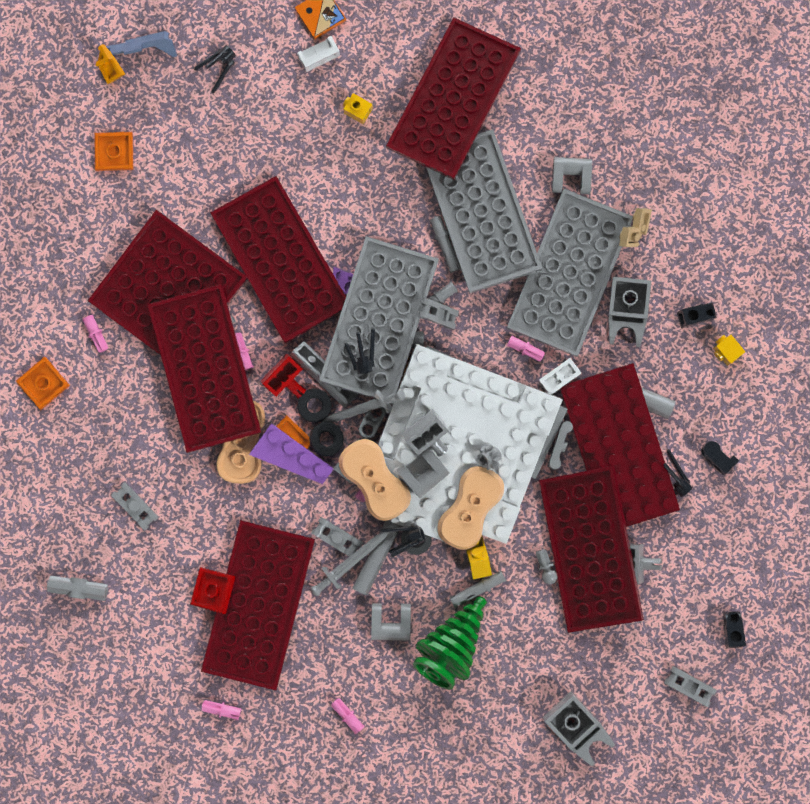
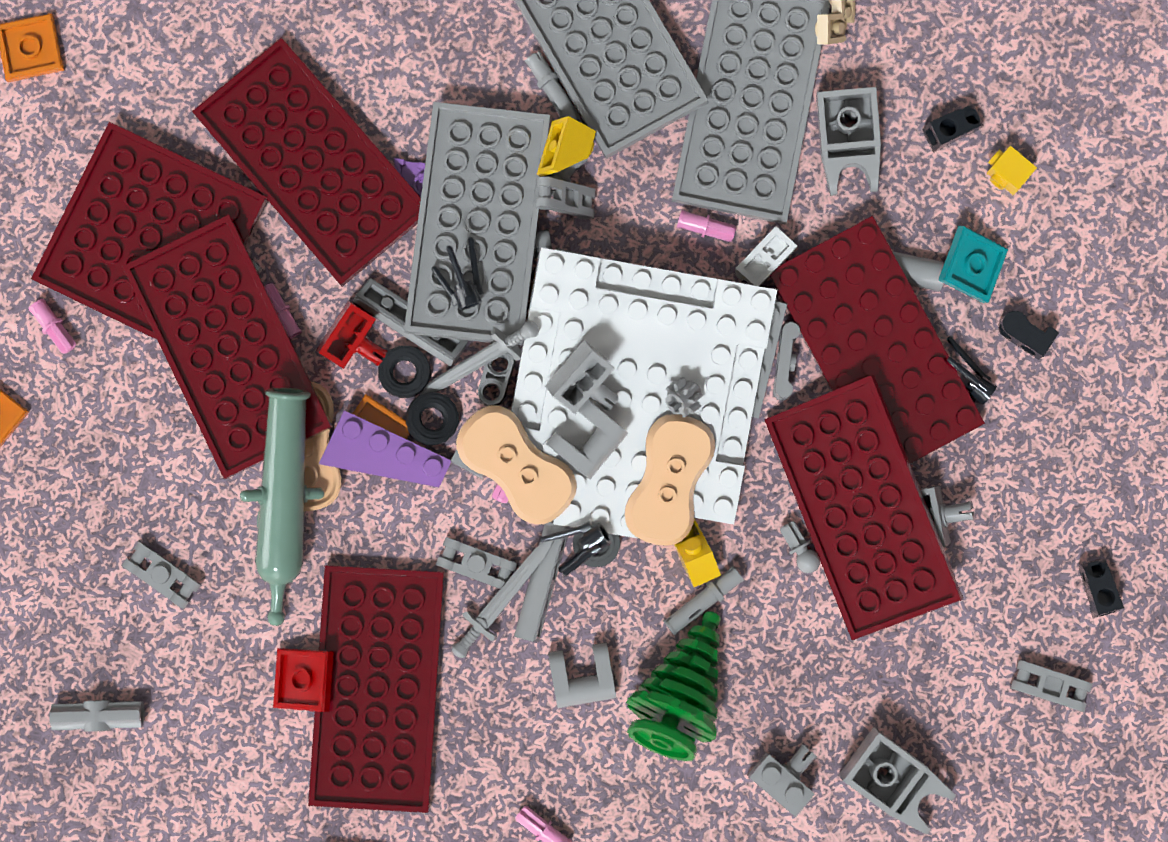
camera: 10 degrees left, 0 degrees up
(221, 470) = (282, 496): none -> sand green piece
(445, 281) = (566, 145): none -> yellow slope
(506, 714) = (783, 780): none -> light grey brick
(692, 406) = (973, 264): none -> teal tile

